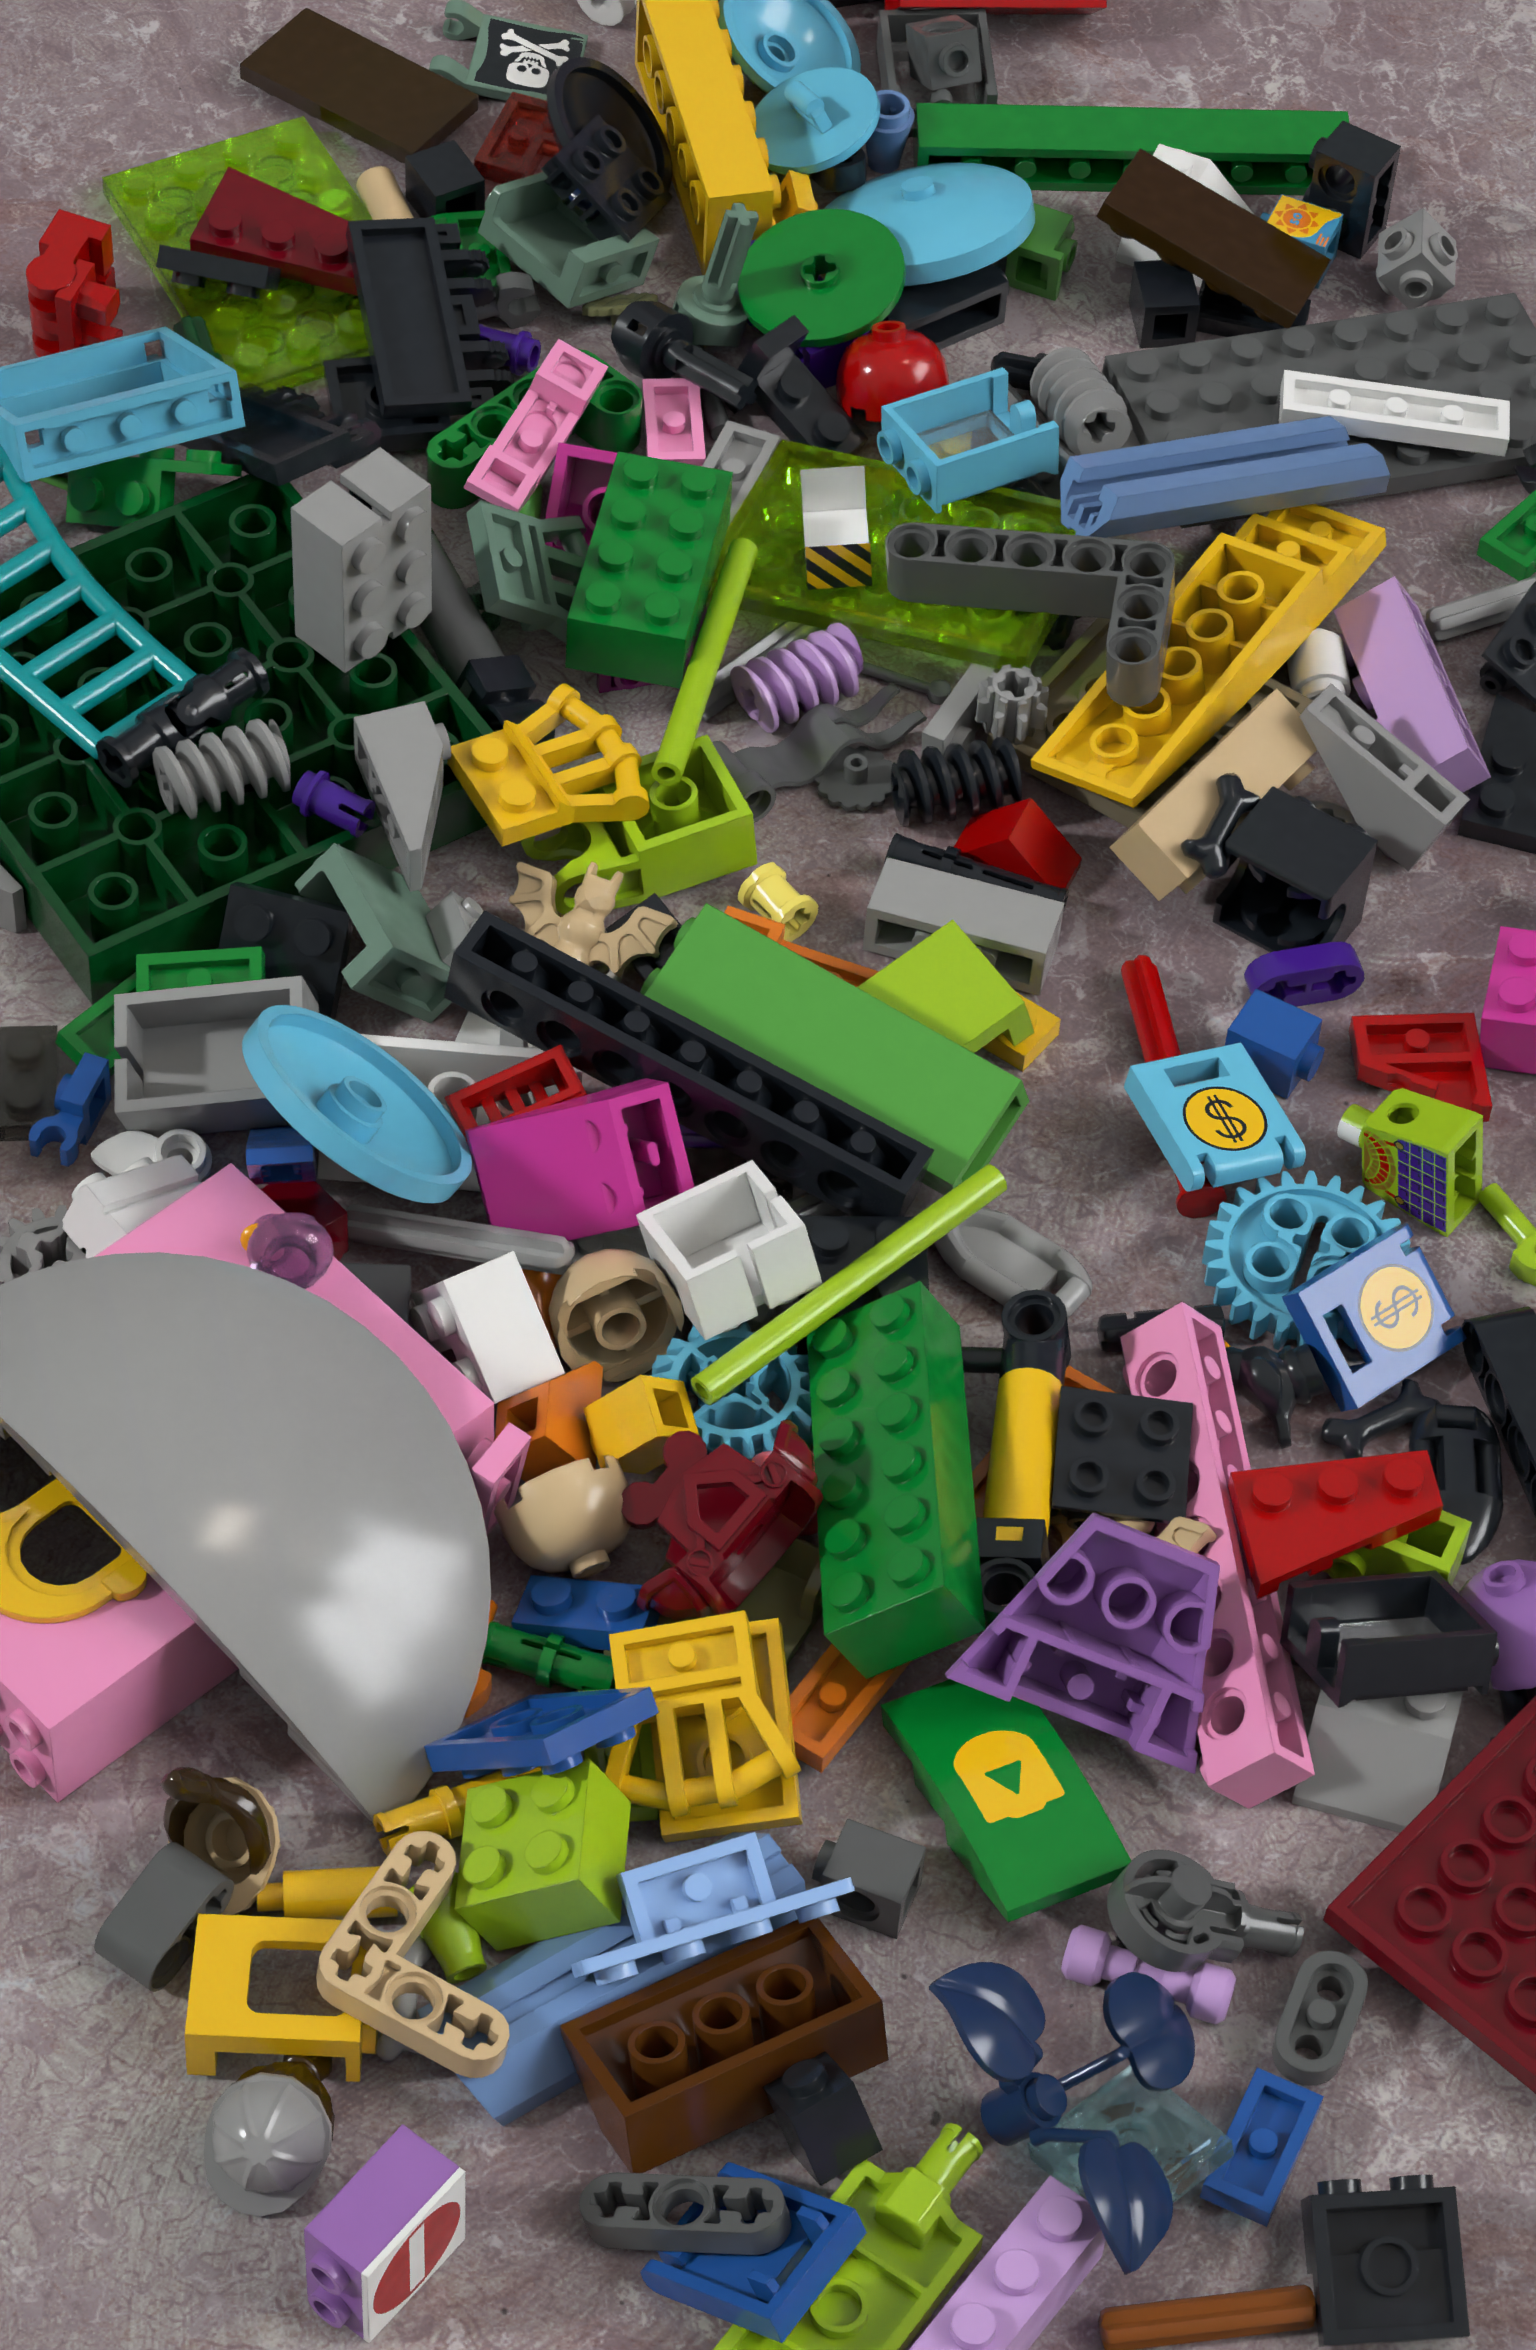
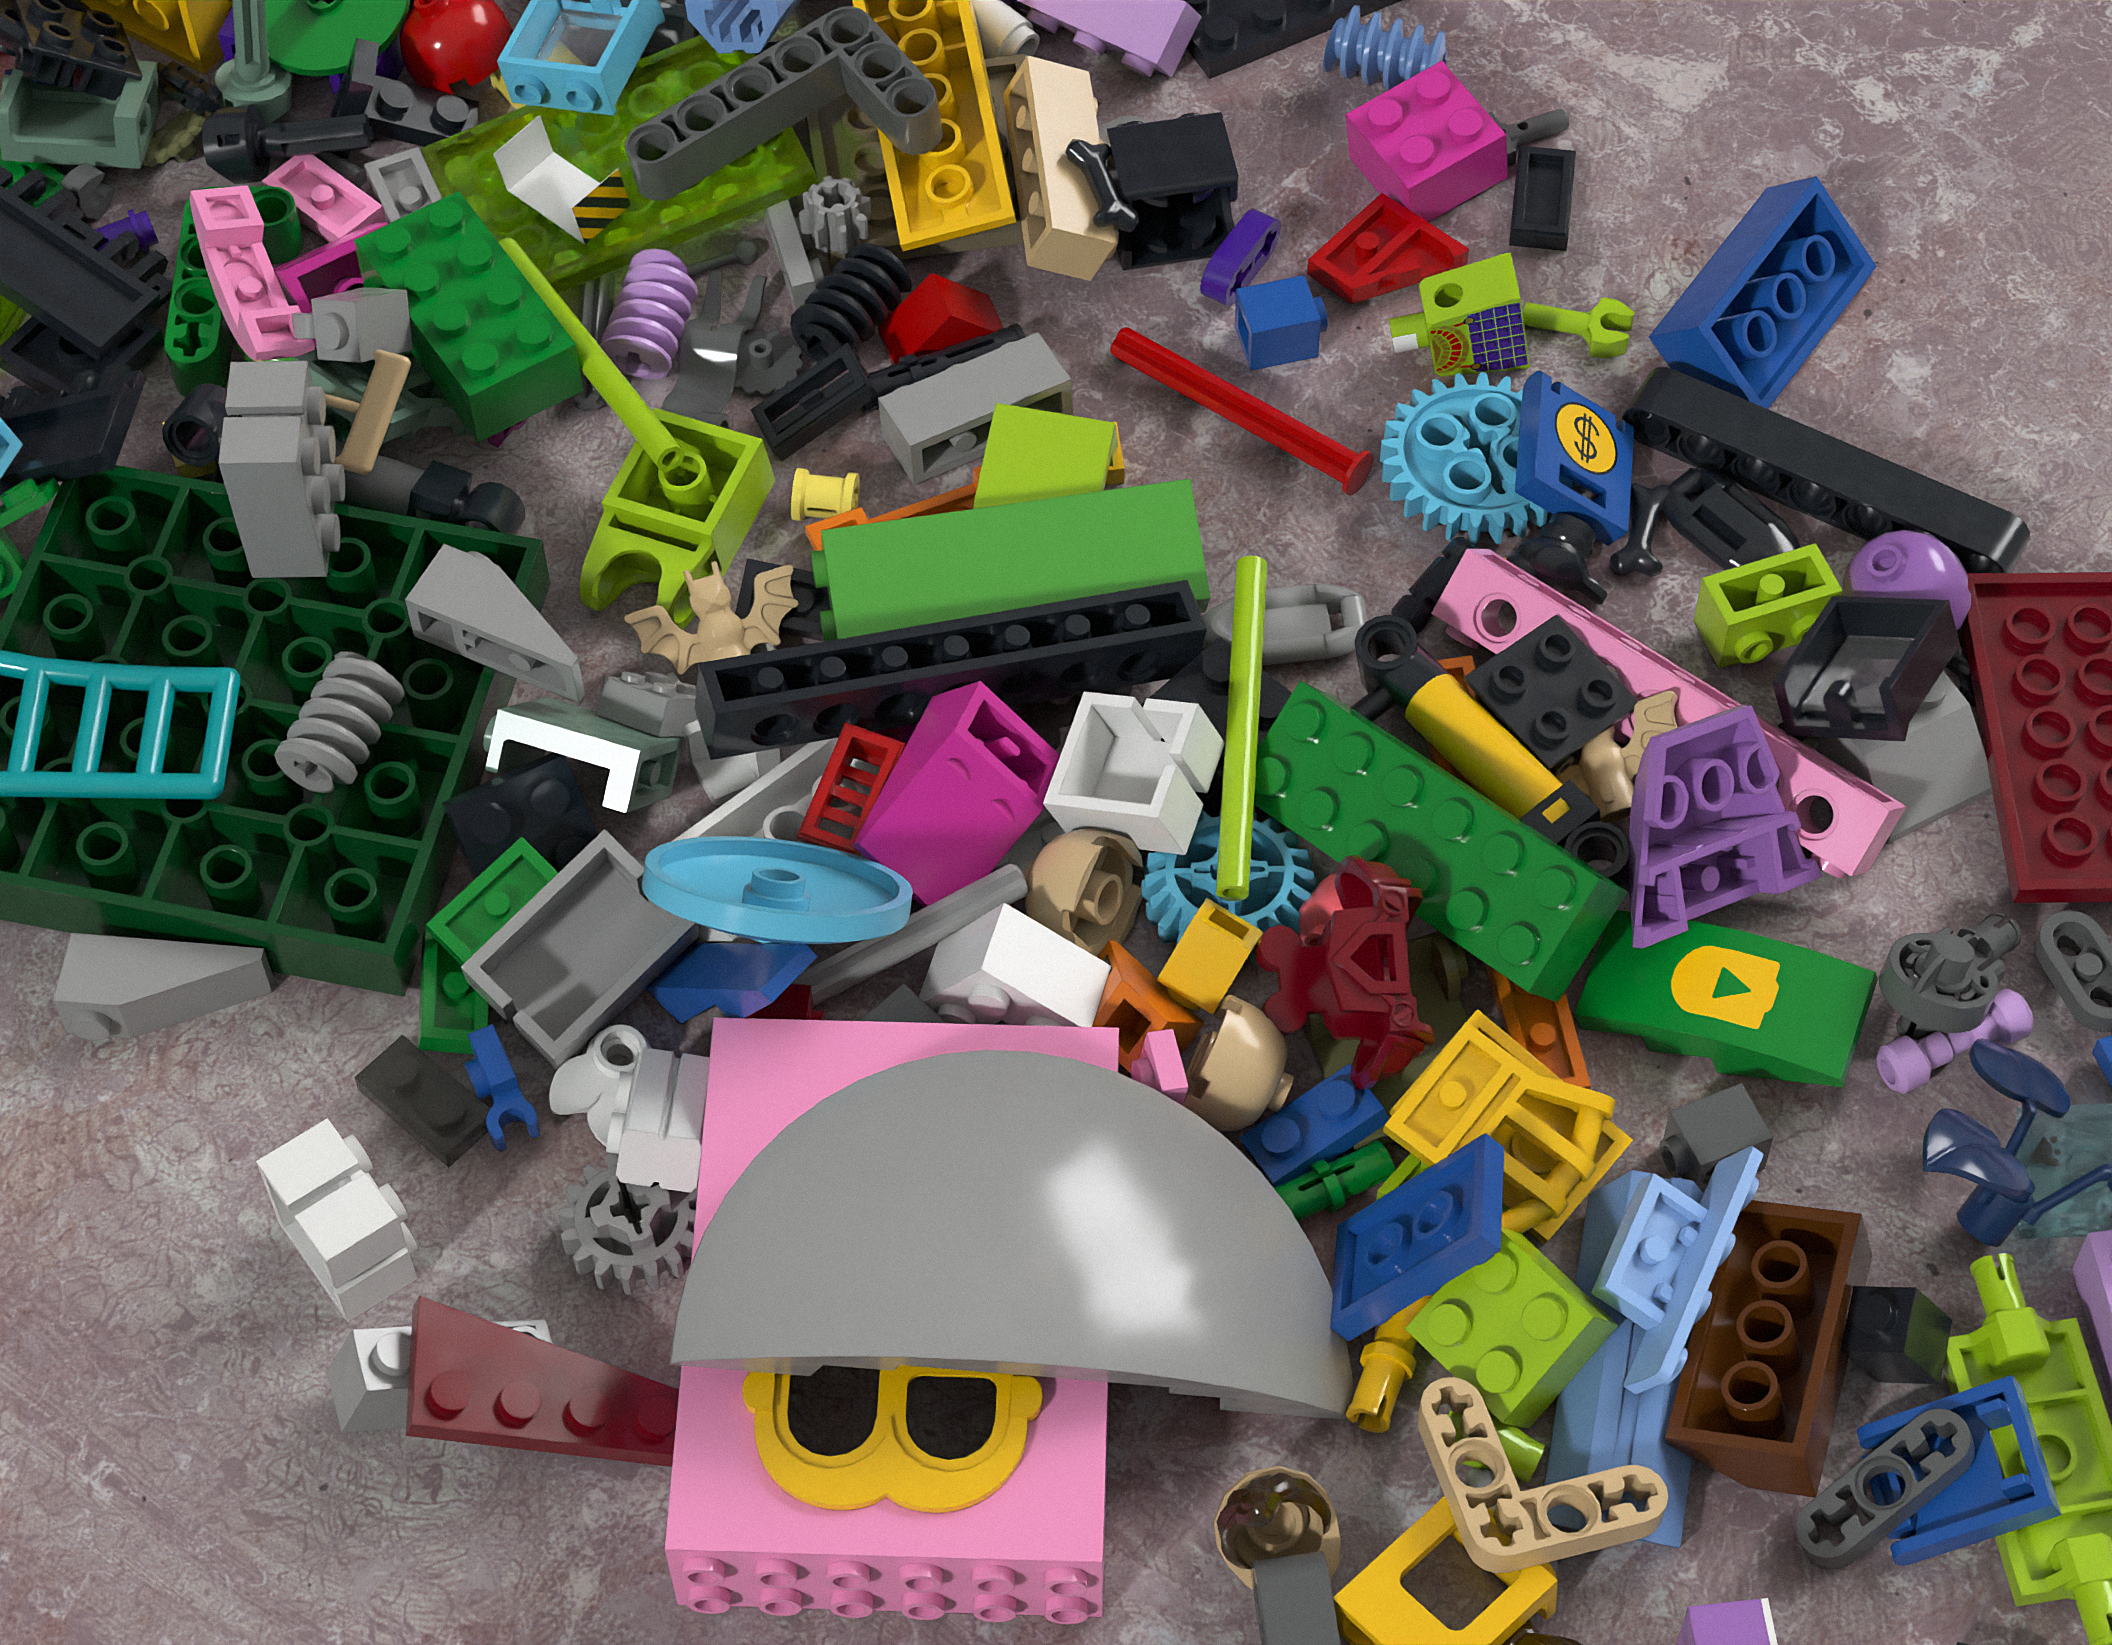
camera: 40 degrees left, 5 degrees up
(201, 706) = (254, 709): black piece -> none
(289, 1247) = (850, 1044): clear purple animal -> none
(320, 1893) = (1384, 1493): yellow cylinder -> none
(329, 801) = (446, 683): dark purple pin -> none
(491, 578) = (373, 411): none -> tan piece
(521, 795) = (574, 559): yellow plate -> none
(550, 511) = (356, 324): none -> light grey brick
(665, 275) = (187, 88): none -> black axle
(848, 829) = (817, 408): none -> black tile
(1222, 1121) = (1324, 404): medium azure container -> none
(1318, 1511) = (1728, 615): red wing -> none
(1381, 779) = (1150, 70): light grey slope -> none

